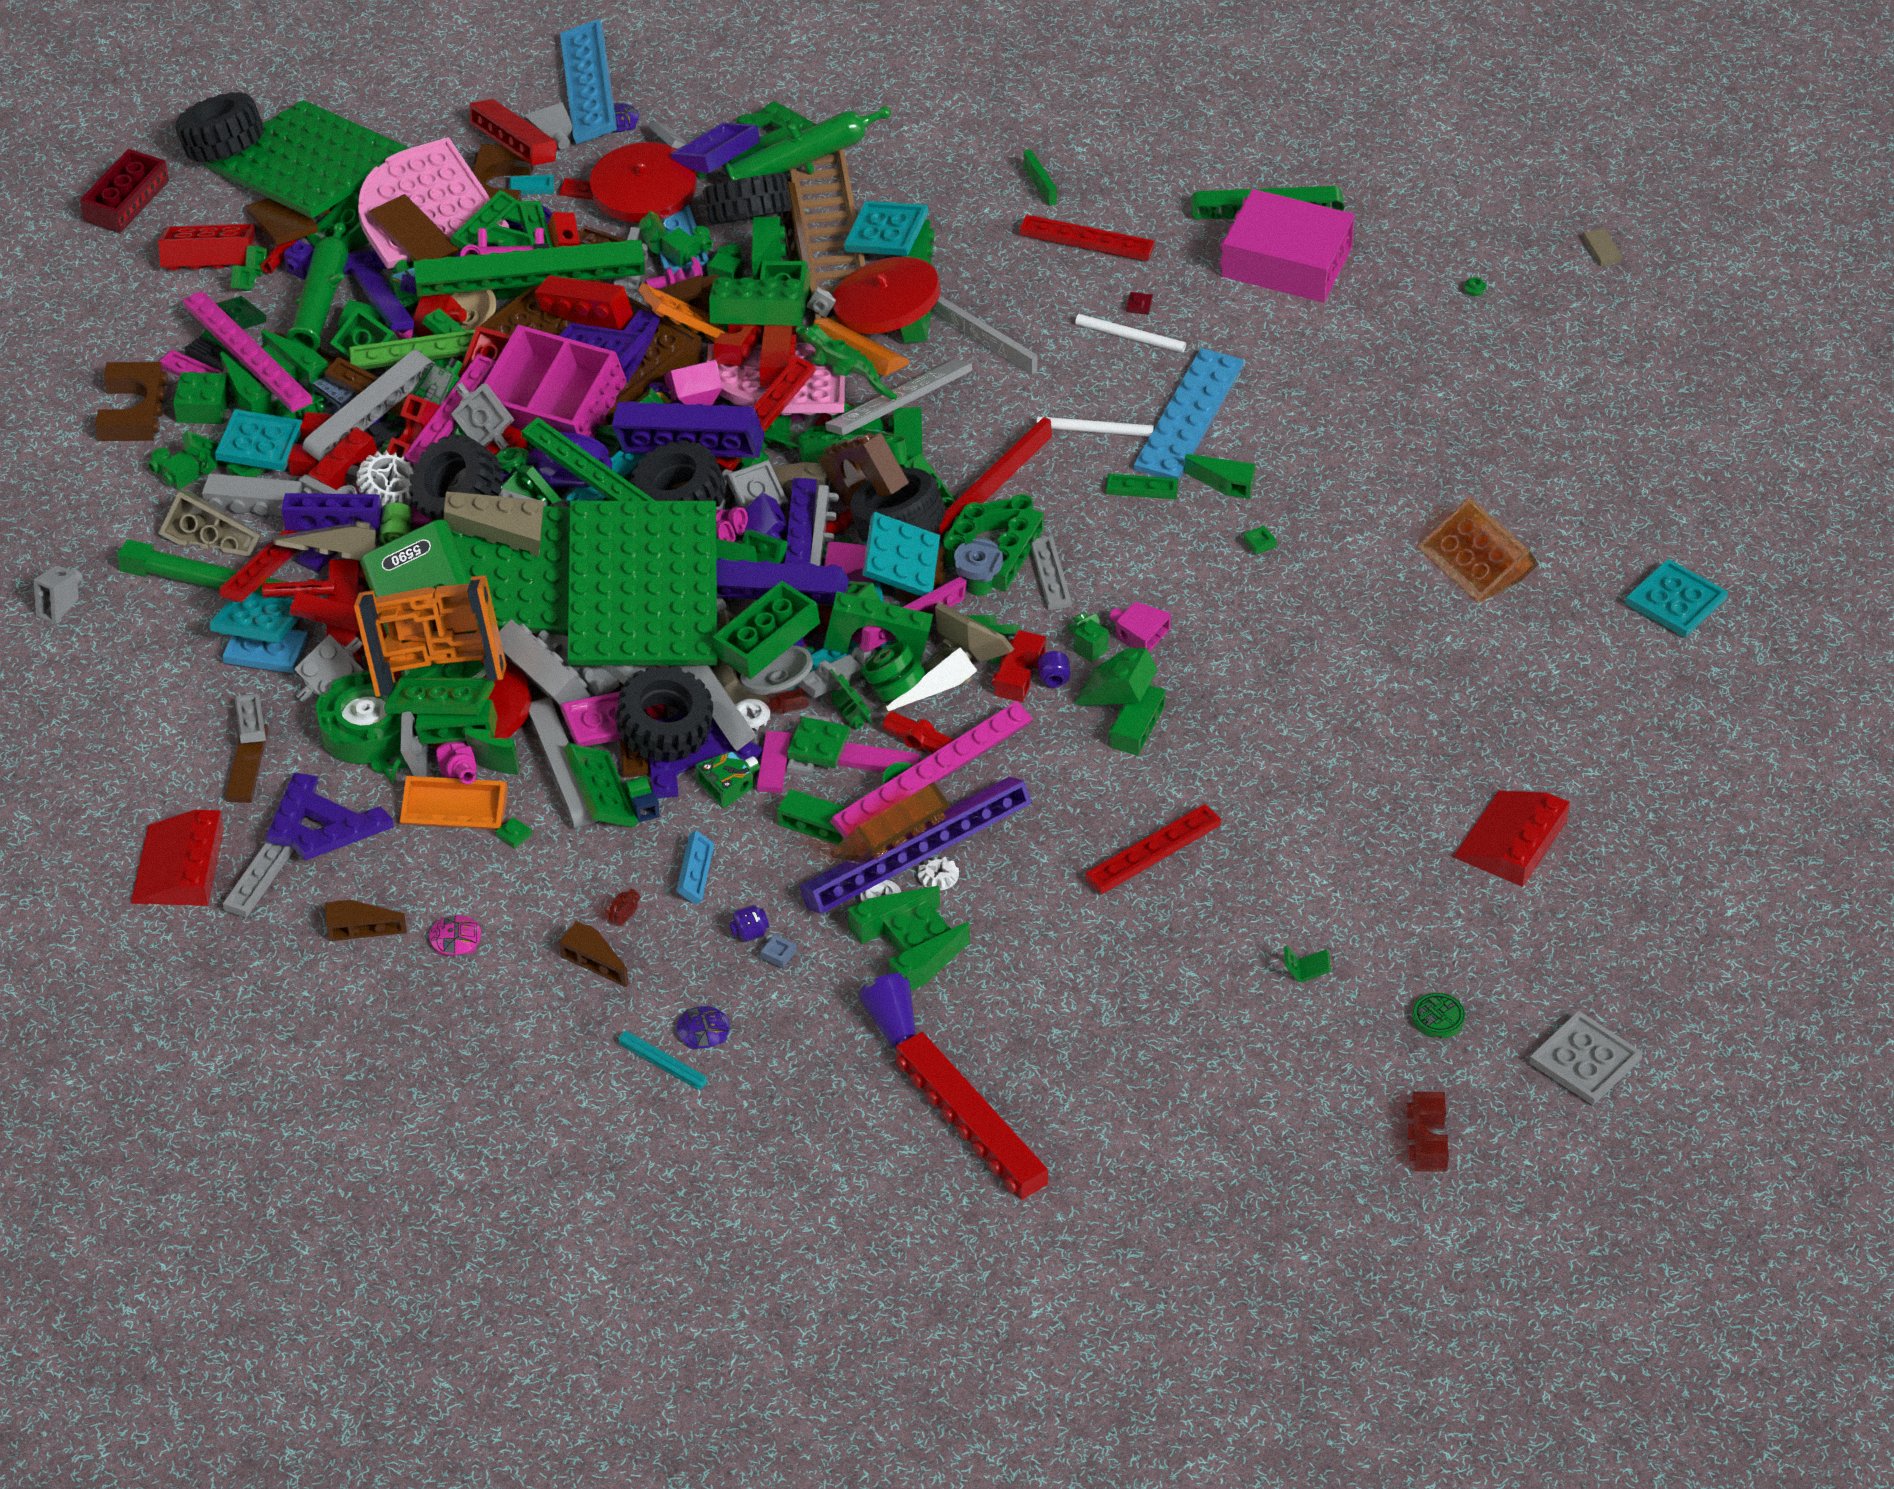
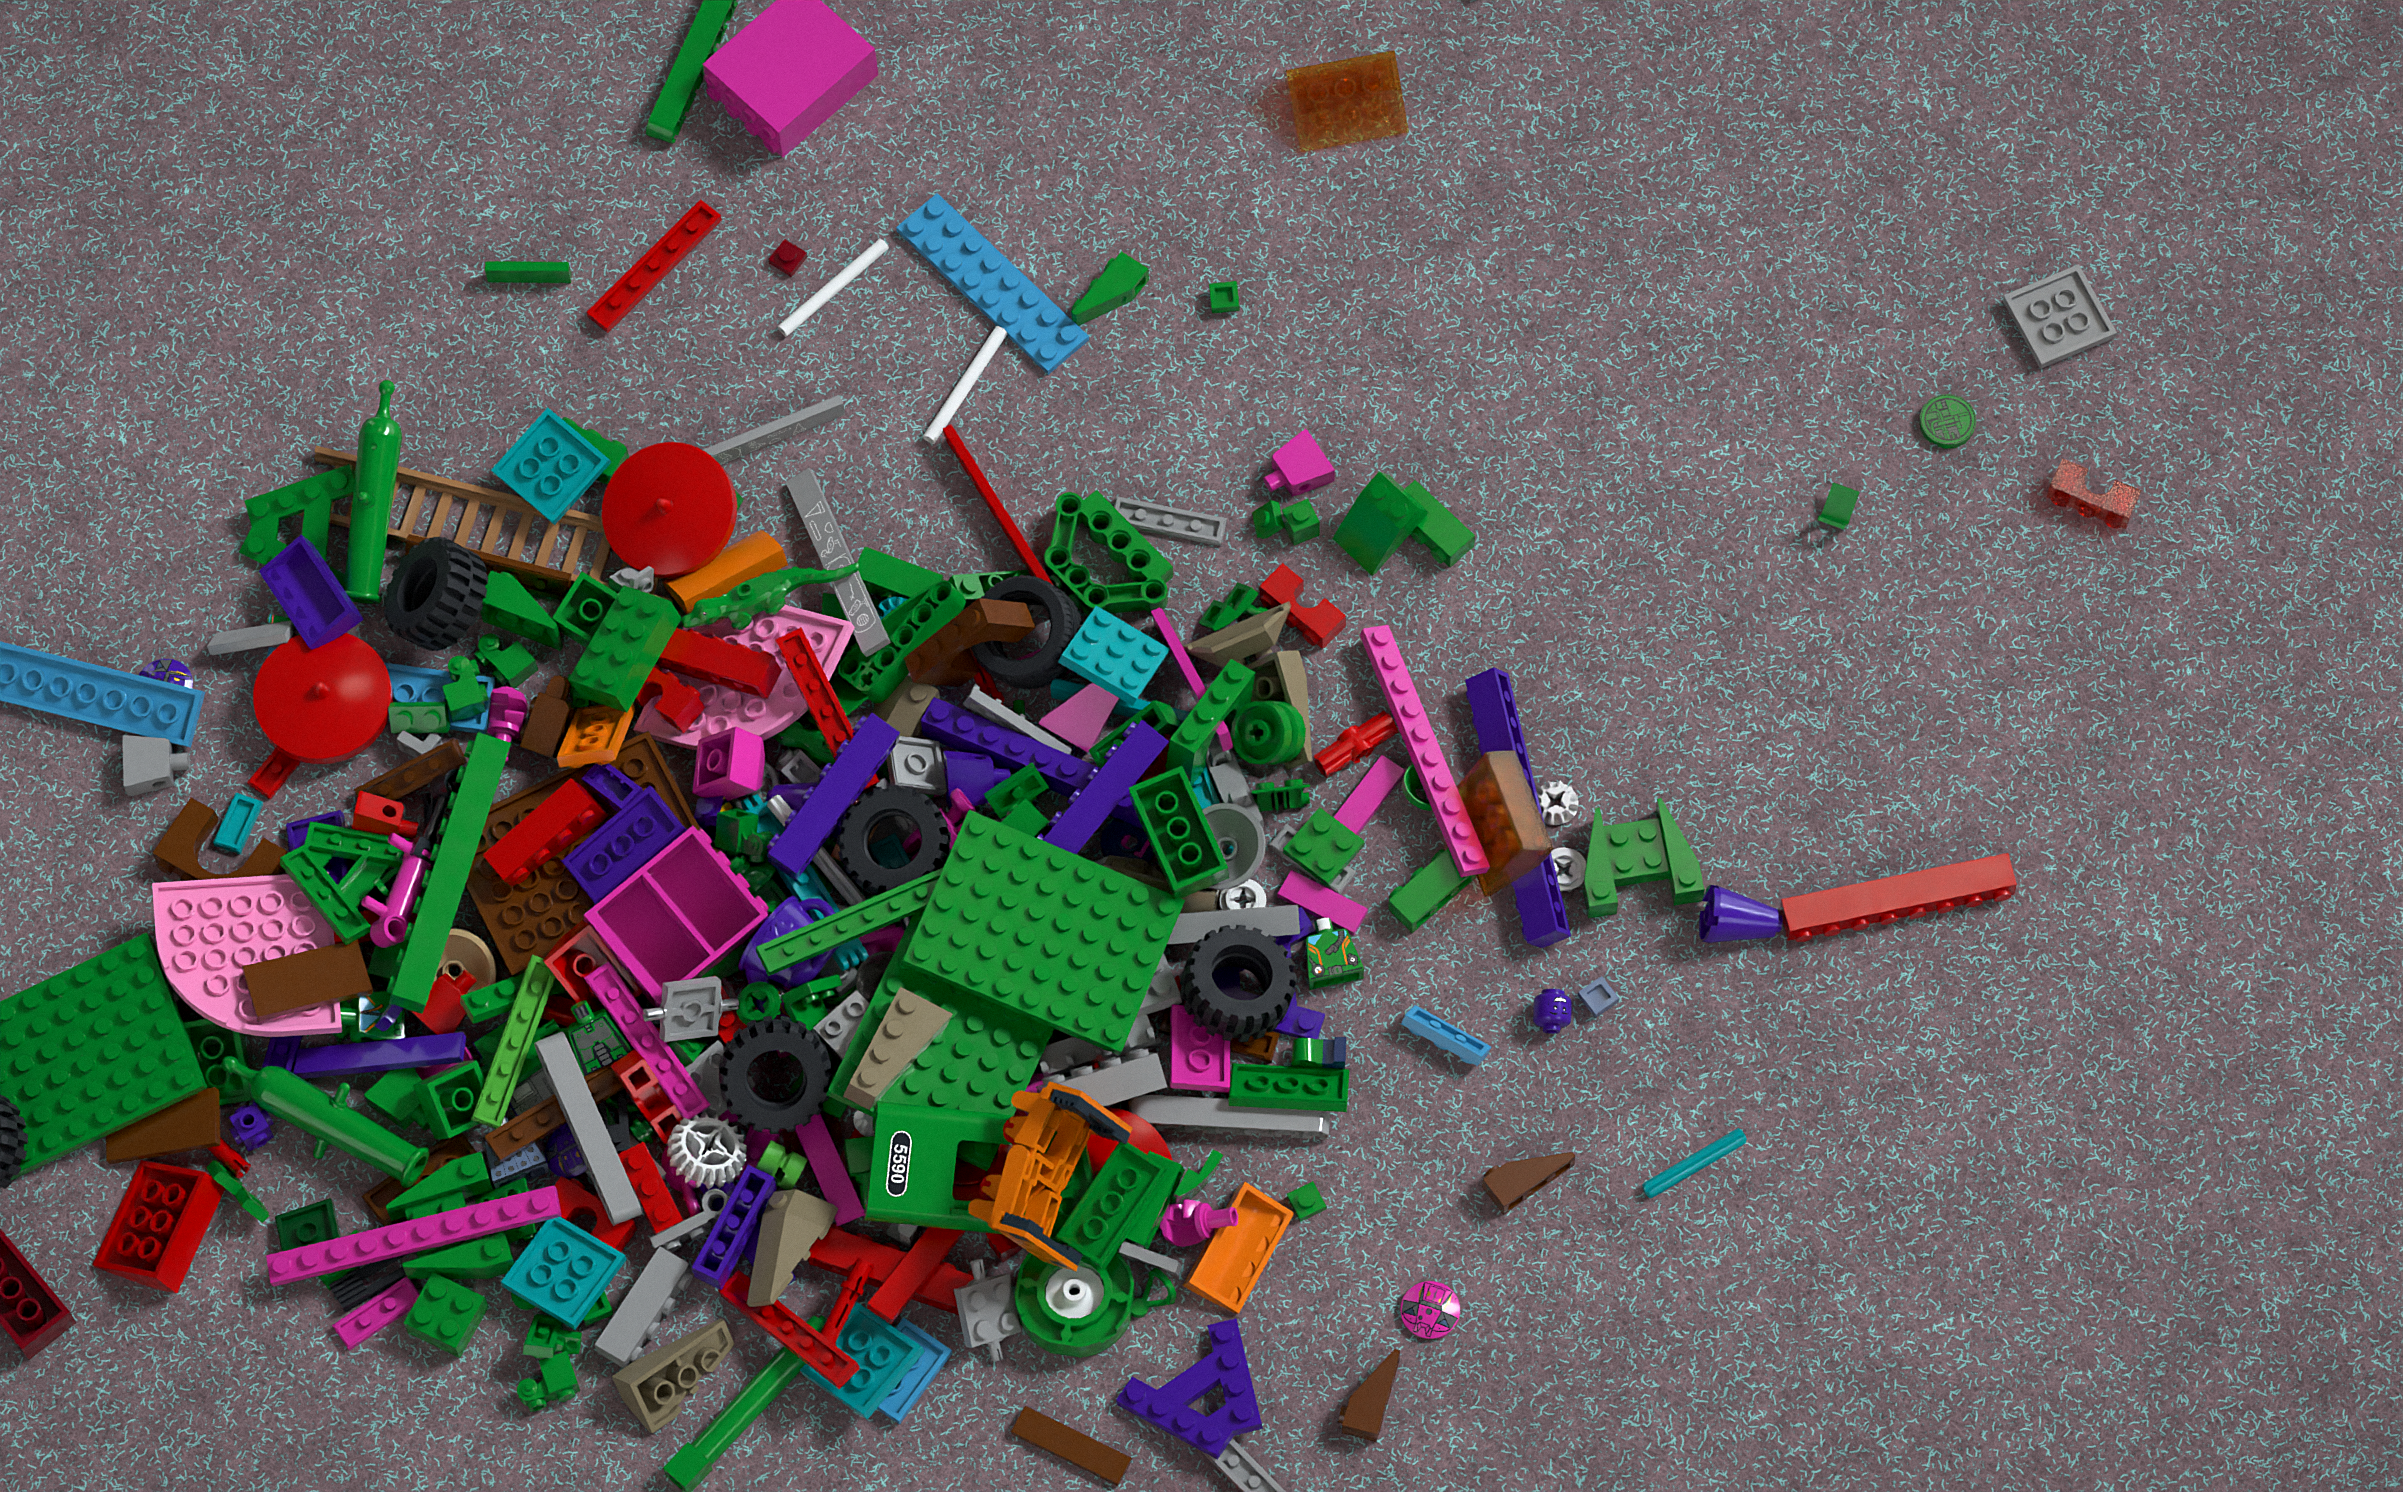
camera: 65 degrees left, 20 degrees up
(141, 420) = (381, 1367): reddish brown arch -> none
(250, 718) = (1012, 1420): light grey tile -> none
(513, 132) = (157, 809): red brick -> none
(622, 907) = (1464, 1117): clear red arm -> none
(703, 1027) = (1667, 1108): dark purple dish -> none
(978, 570) = (1144, 598): sand blue plate -> none
(1054, 669) = (1323, 574): dark purple head -> none
(1142, 486) = (1081, 377): green tile -> none
(1152, 849) = (1618, 585): red plate -> none
(1514, 834) = (1748, 246): red slope -> none

